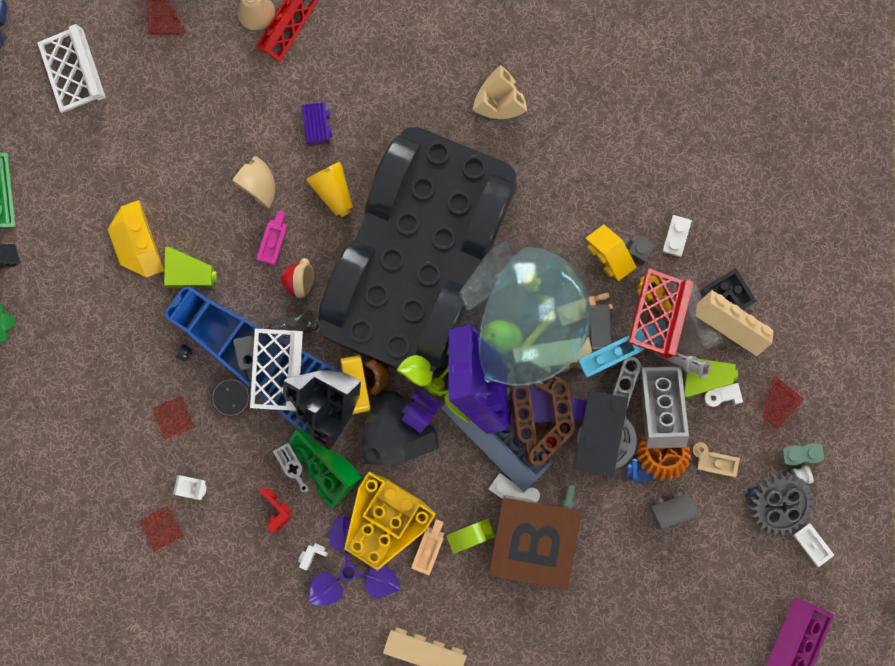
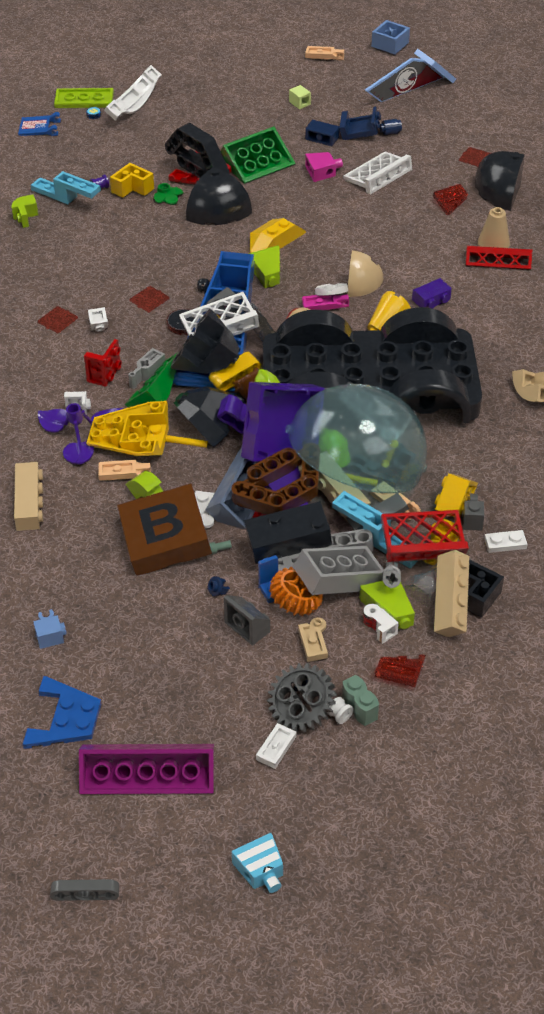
camera: 65 degrees right, 35 degrees down
(33, 127) = (322, 165): none -> dark pink torso
(52, 276) = (218, 199): none -> black brick
(261, 223) = (329, 289): none -> white tile
(411, 470) = (186, 441): none -> yellow bar
(618, 522) = (216, 586): none -> dark blue plate

